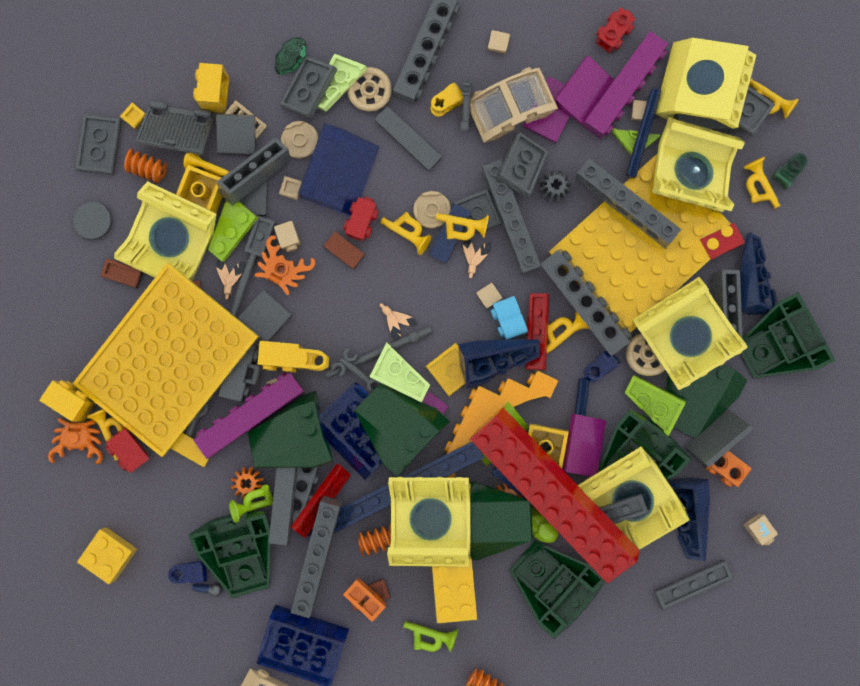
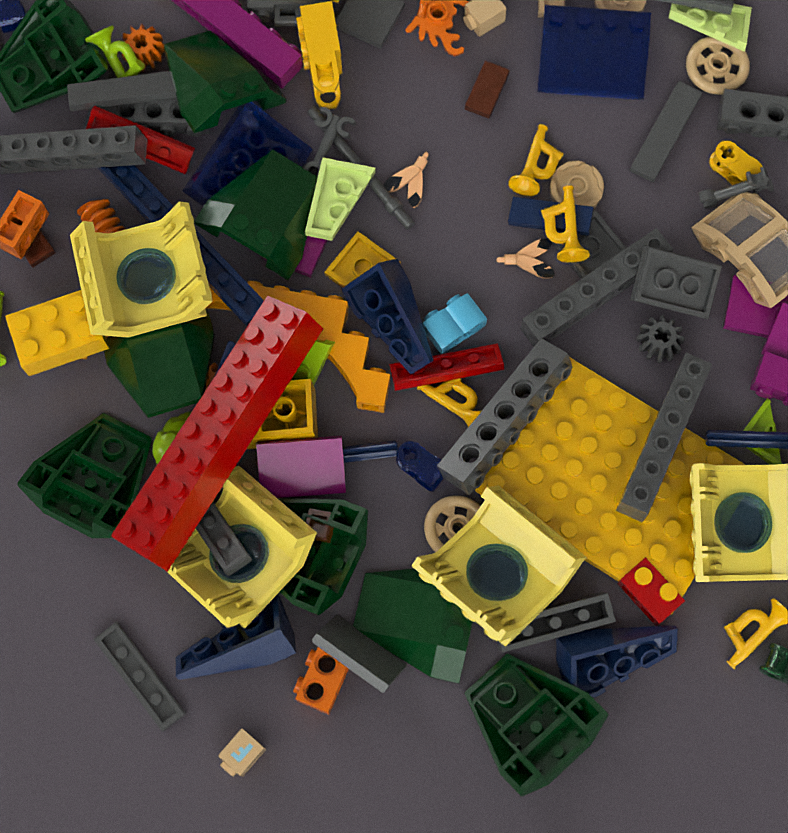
camera: 75 degrees right, 10 degrees down
(362, 215) = (535, 96): red brick -> none
(489, 295) = (480, 290): tan tile -> none
(630, 446) = (324, 532): none -> reddish brown tile
(657, 403) = (388, 558): lime wing -> none

